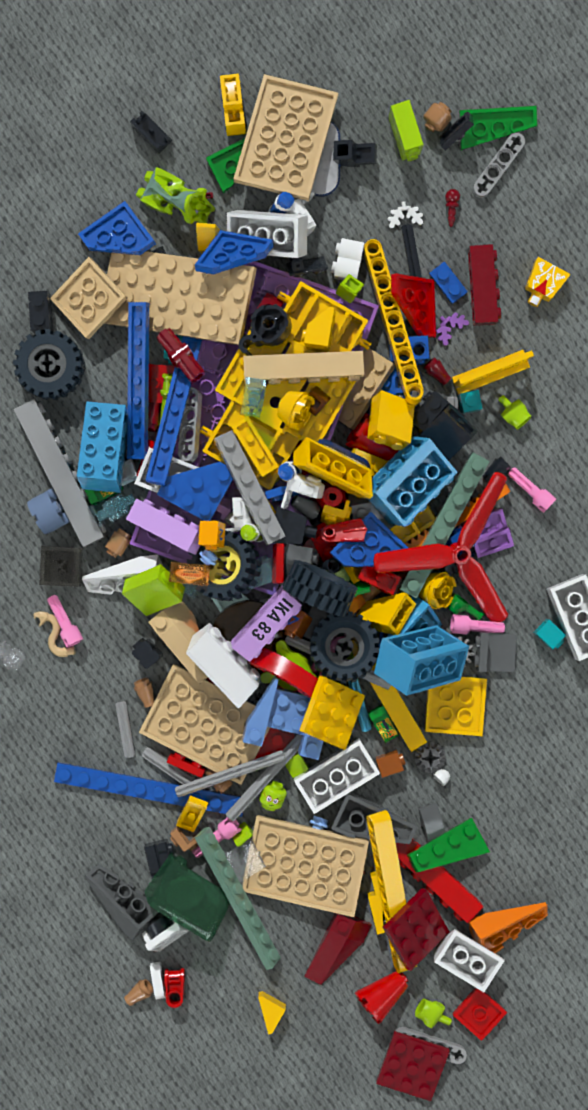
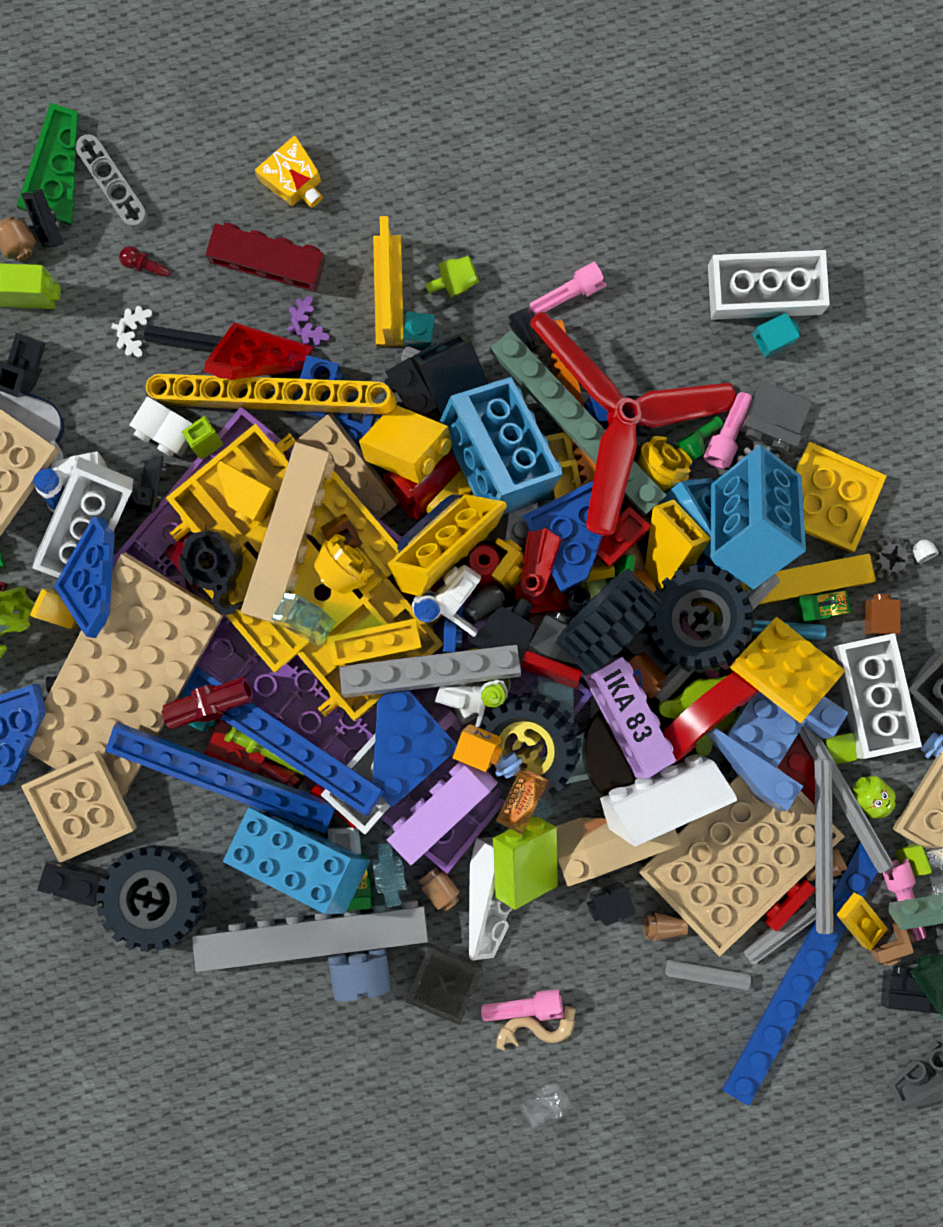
camera: 75 degrees left, 5 degrees down
(194, 425) = (311, 722): light grey beam -> none
(437, 371) = (359, 361): dark red cone -> none
(448, 282) = (245, 304): blue plate -> none
(495, 535) = (616, 360): medium lavender slope -> none

